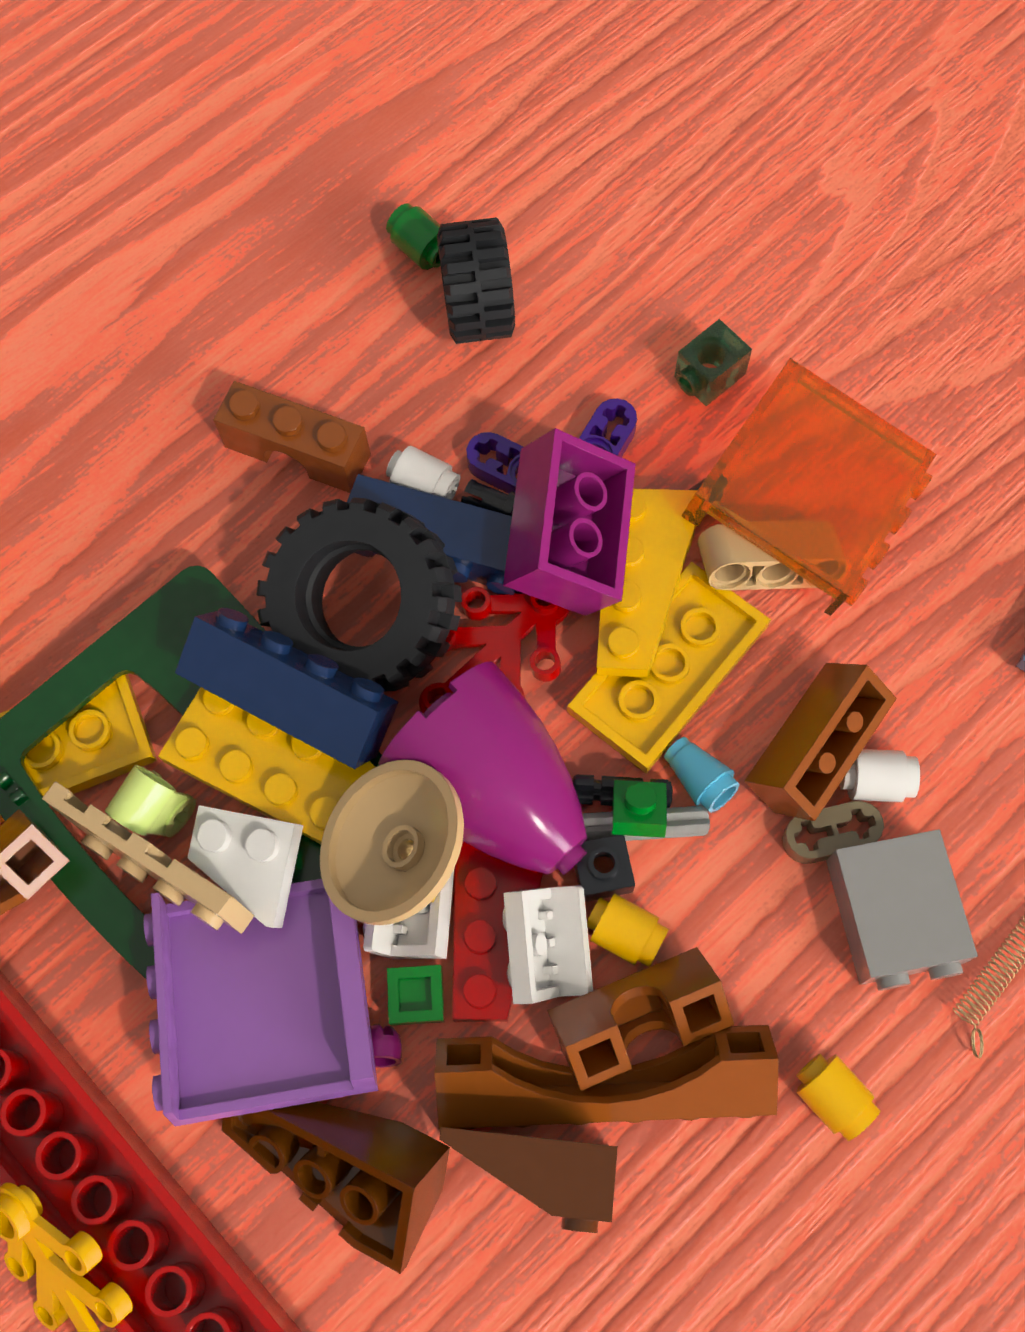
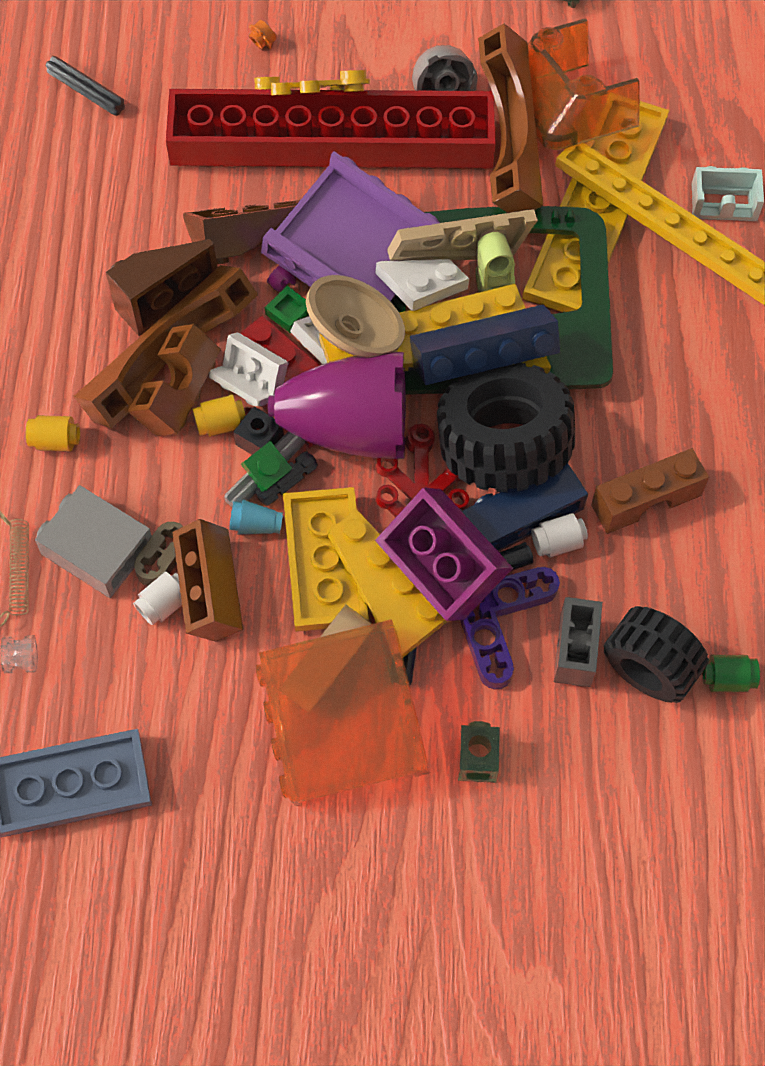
camera: 130 degrees right, 5 degrees down
(523, 363) = (578, 642): none -> dark grey brick

